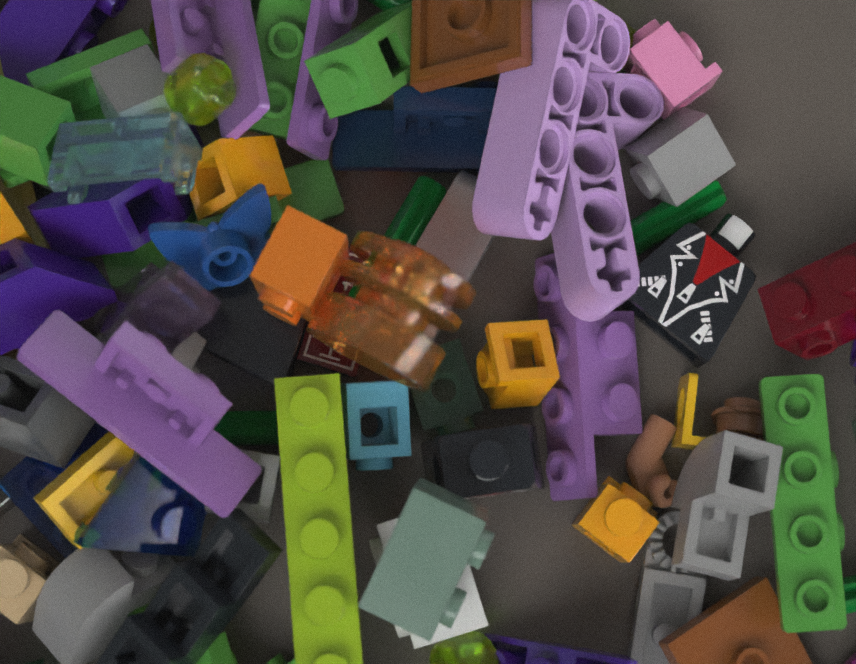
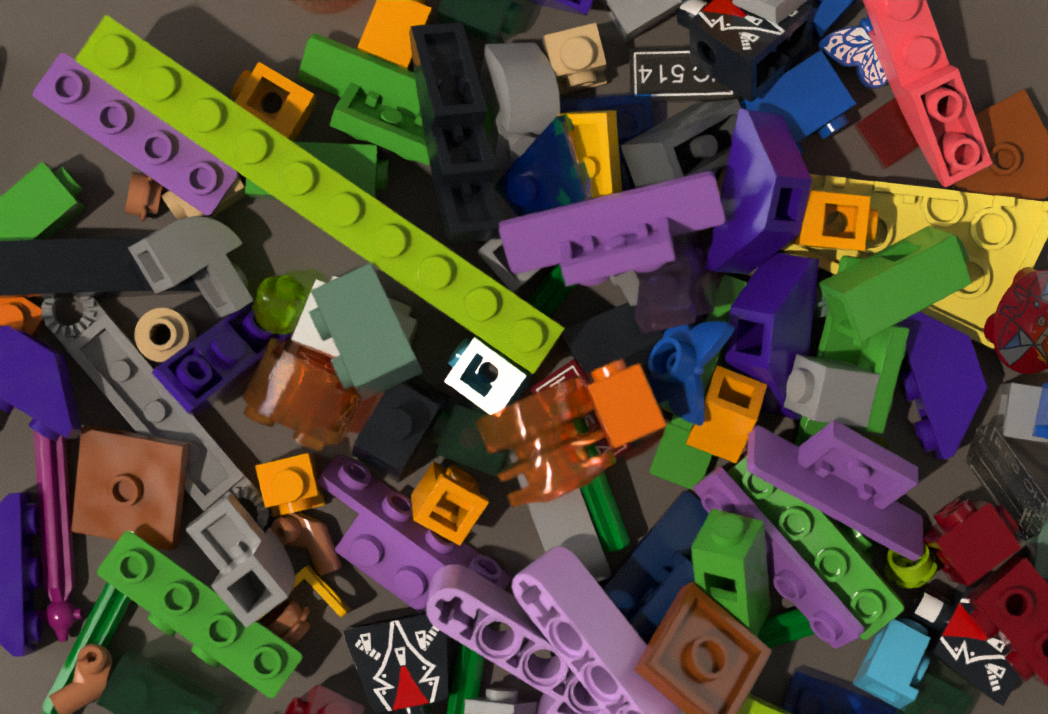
camera: 135 degrees right, 5 degrees up
(124, 151) = (794, 348): clear light blue hinge -> none
(200, 88) = (800, 435): clear neon green piece -> none
(532, 575) = (302, 395): none -> clear orange brick

